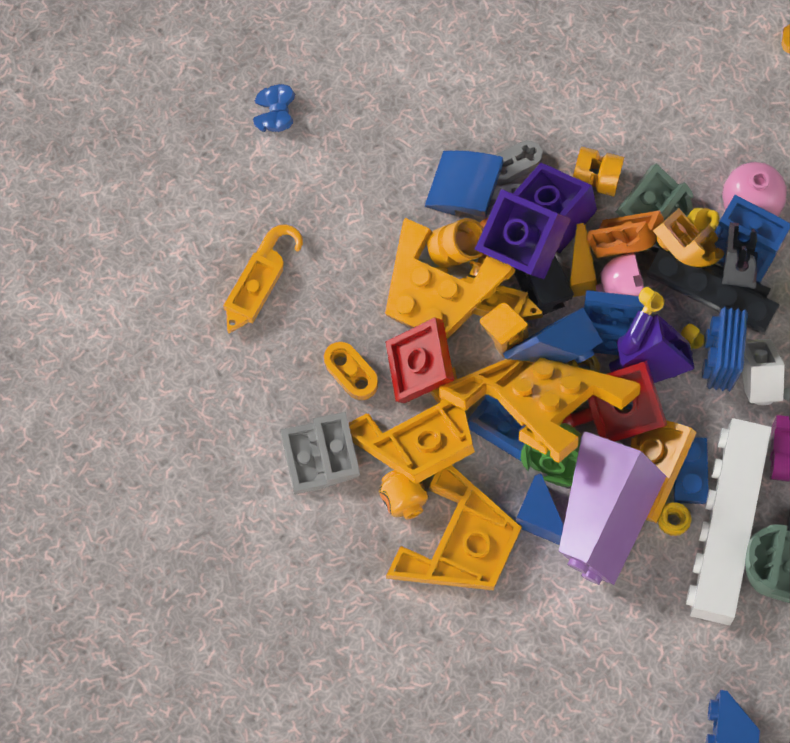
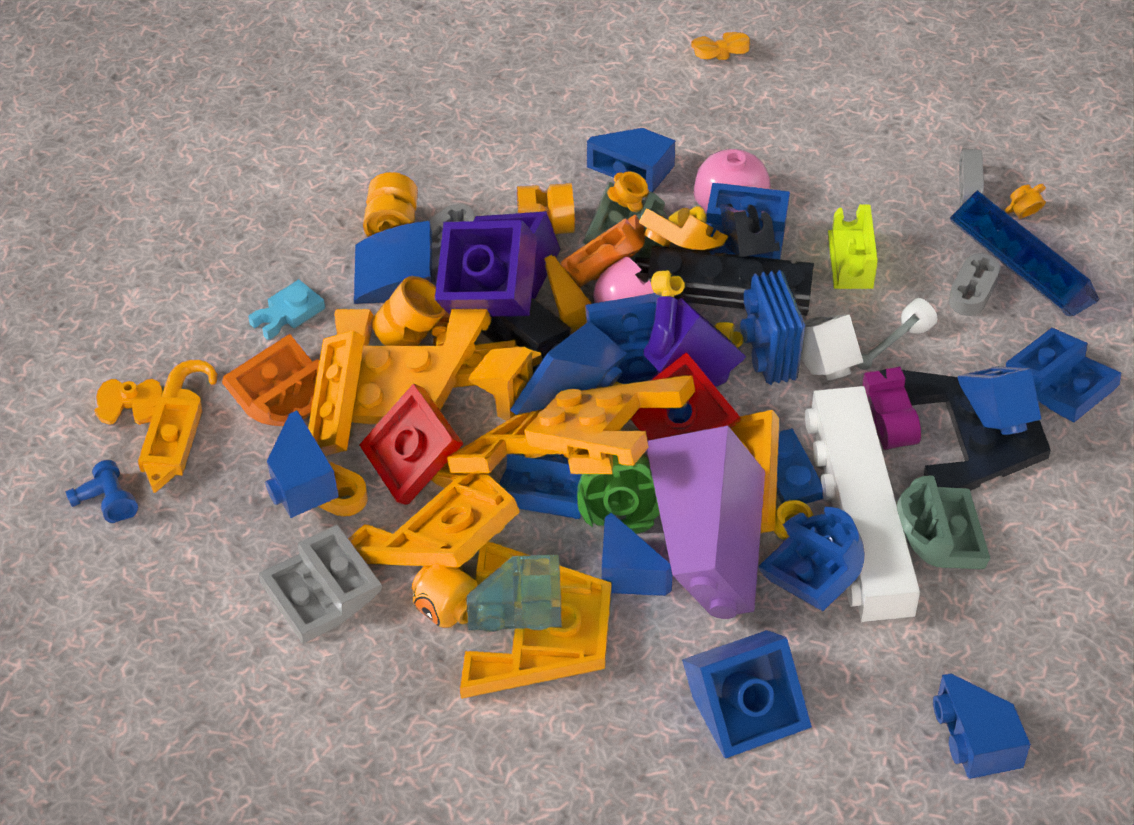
camera: 20 degrees left, 20 degrees down
(200, 335) = (117, 502): none -> blue piece
(225, 237) = (115, 396): none -> light orange piece
(277, 99) = (136, 247): blue piece -> none
(330, 358) = (299, 470): none -> blue slope
(344, 269) = (275, 383): none -> orange slope
(375, 195) = (291, 306): none -> medium azure plate
(379, 296) = (336, 391): none -> light orange plate
(451, 521) = (518, 596): none -> clear light blue slope
(479, 128) = (389, 202): none -> light orange wheel
(582, 647) = (748, 692): none -> blue slope
(674, 175) = (629, 190): none -> light orange plate
(674, 561) = (817, 557): none -> blue slope
(687, 139) = (632, 151): none -> blue slope

